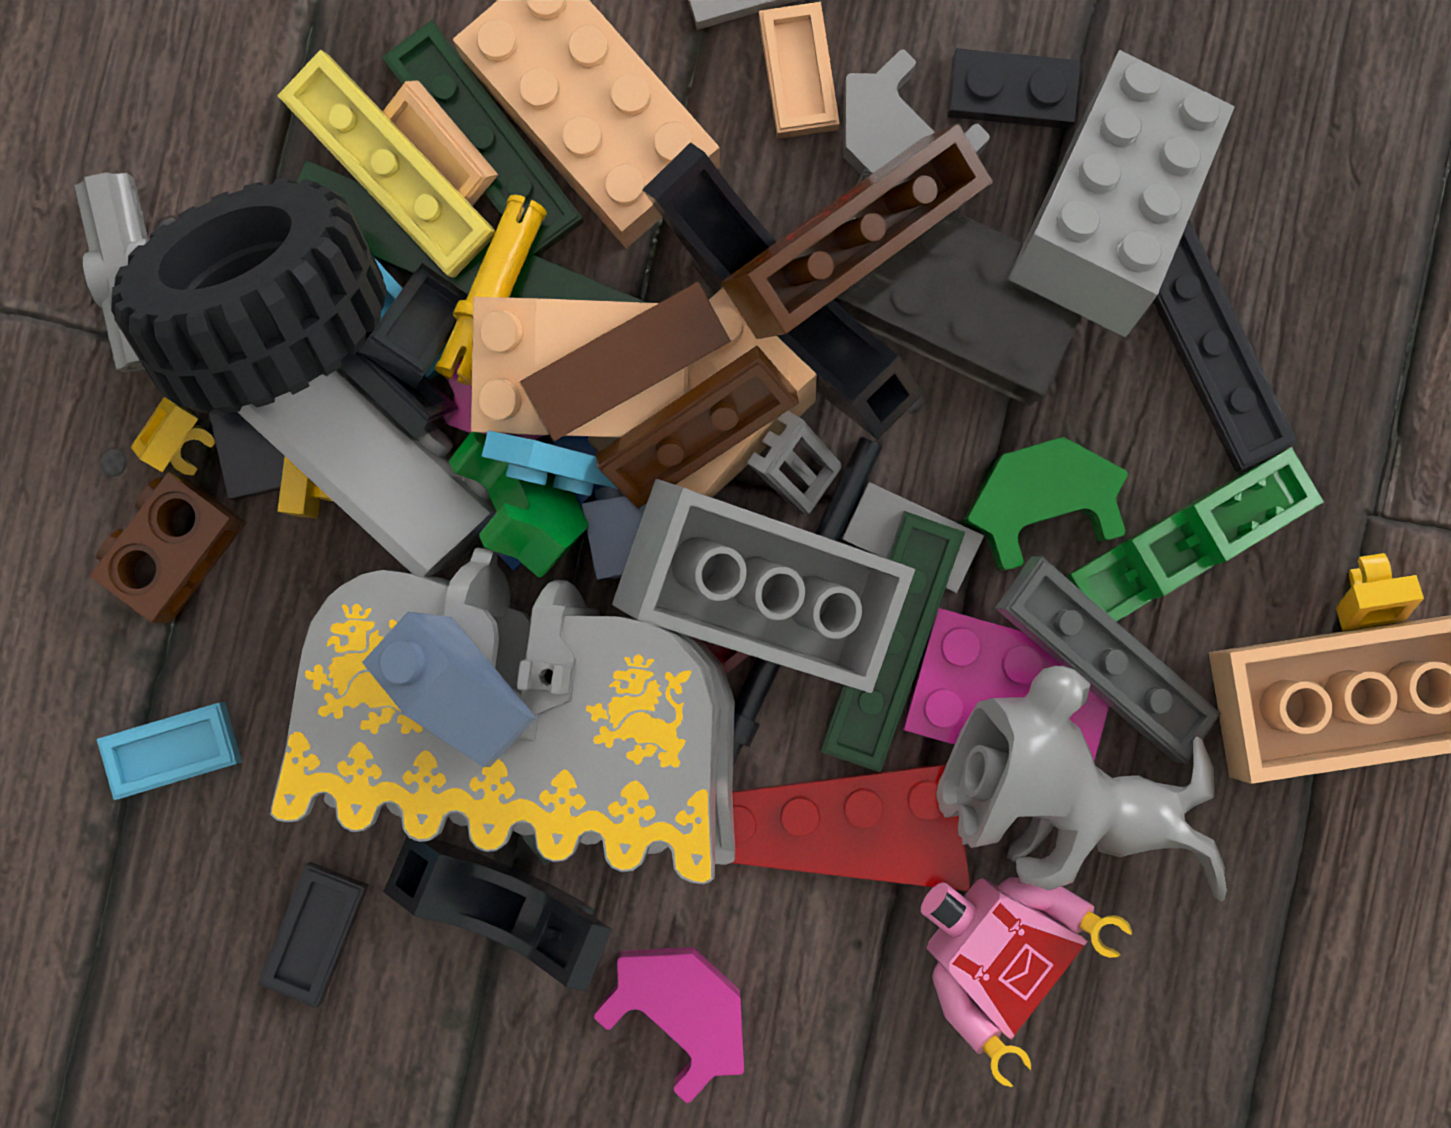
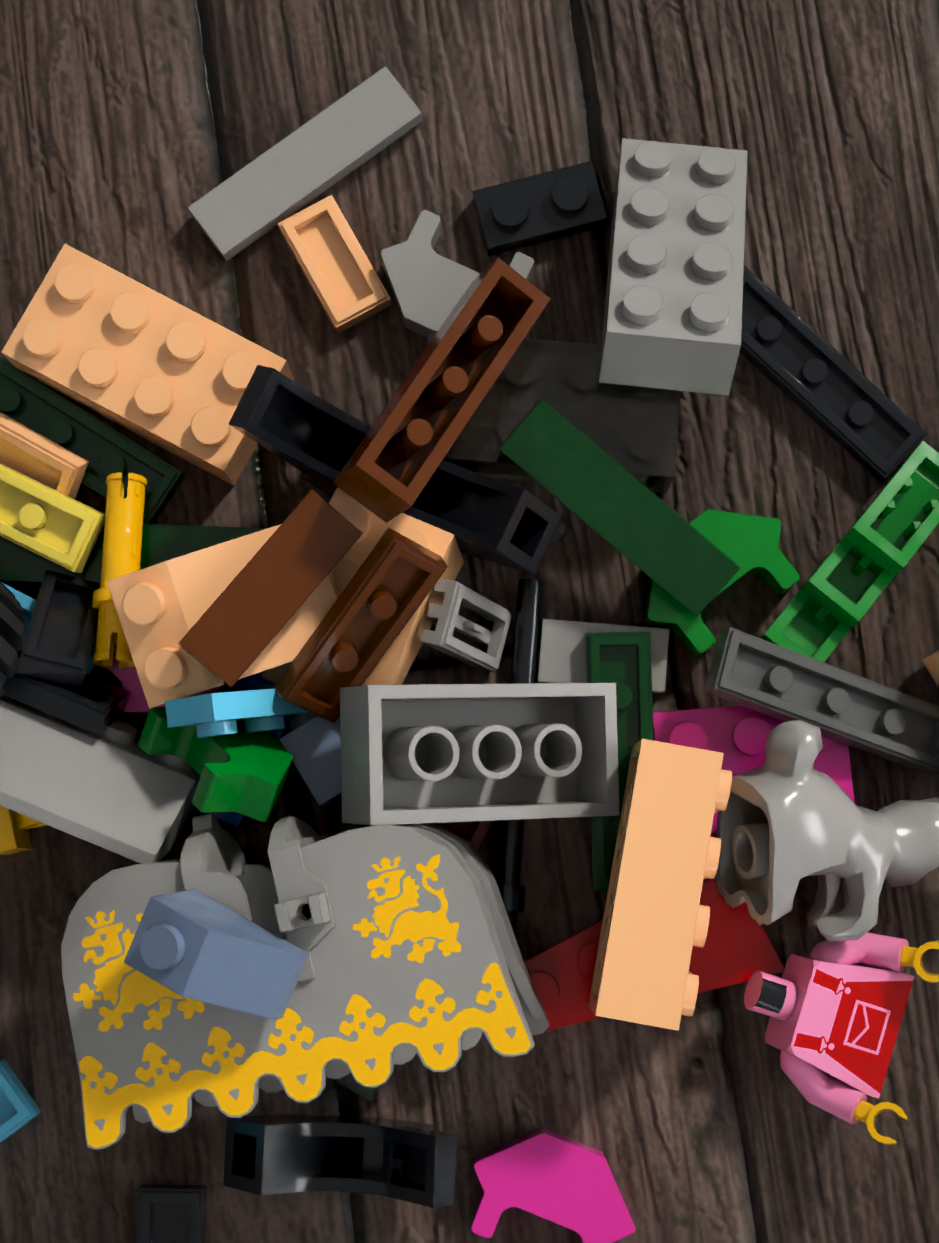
camera: 15 degrees left, 5 degrees down
(883, 770) = (657, 884): none -> light nougat brick
(981, 404) = (619, 507): none -> dark green tile

